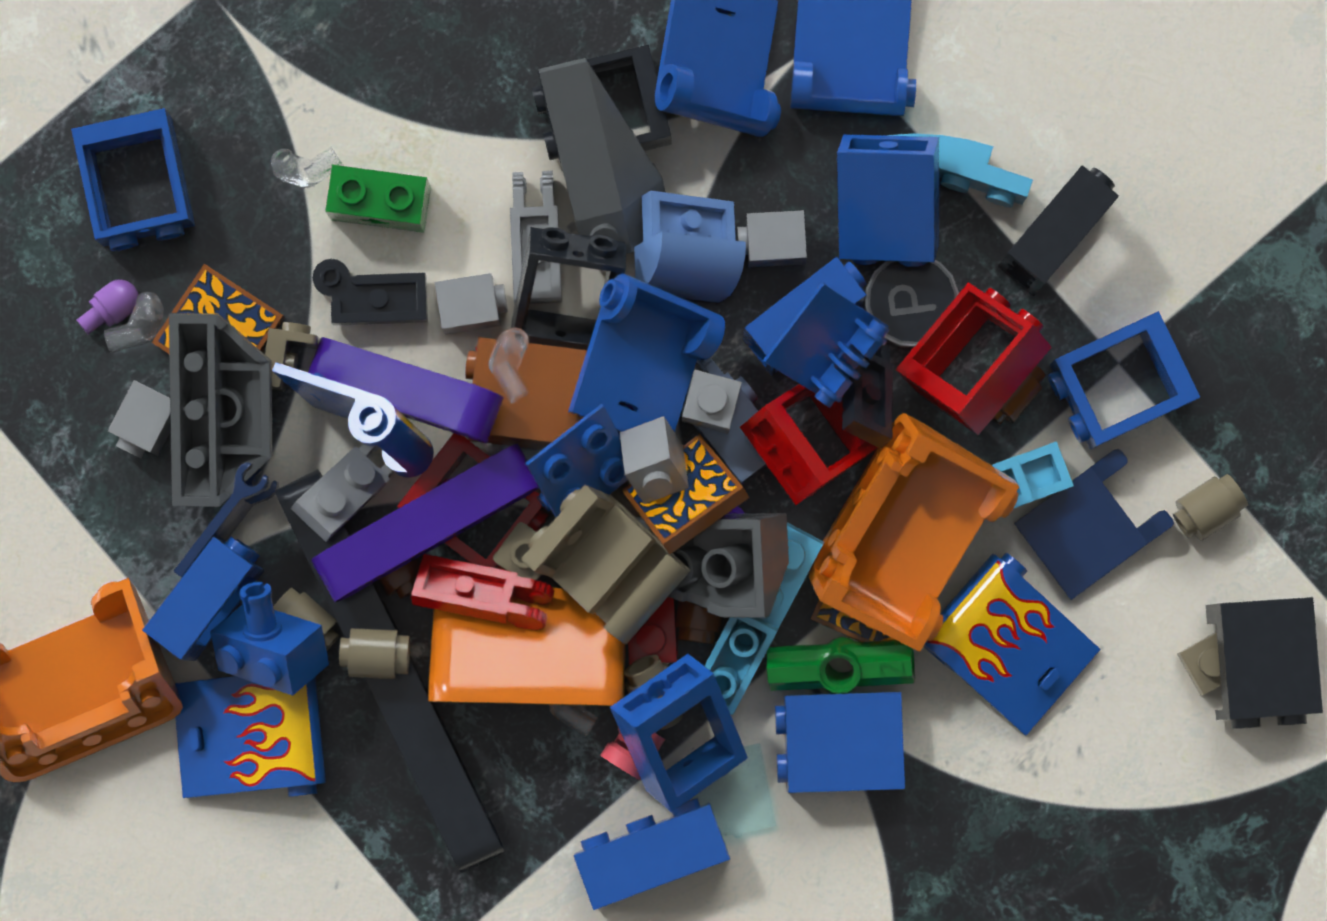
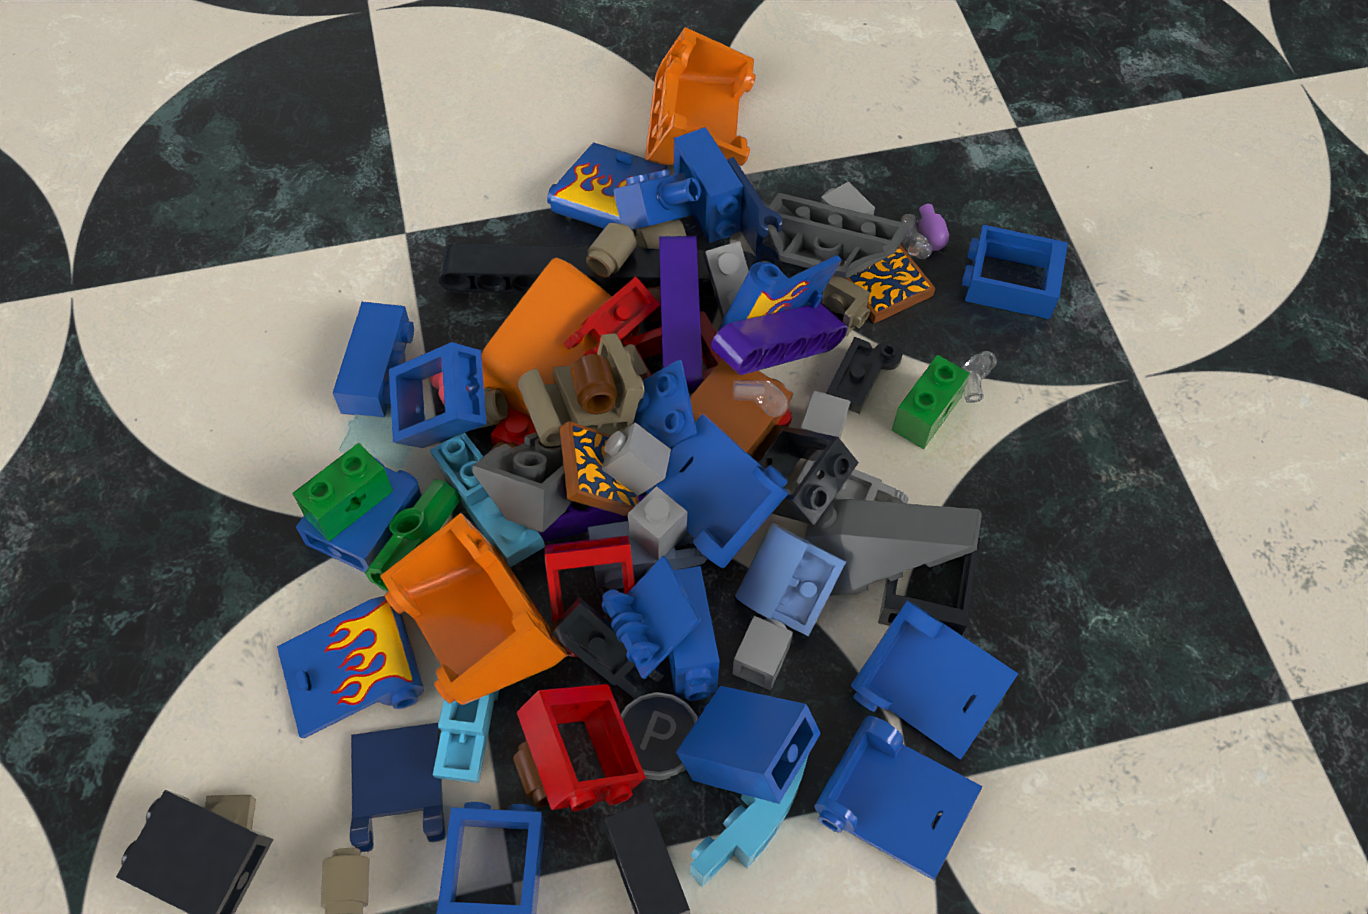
camera: 115 degrees right, 25 degrees down
(601, 544) = (594, 384): none -> reddish brown brick
(851, 751) = (343, 491): none -> green brick

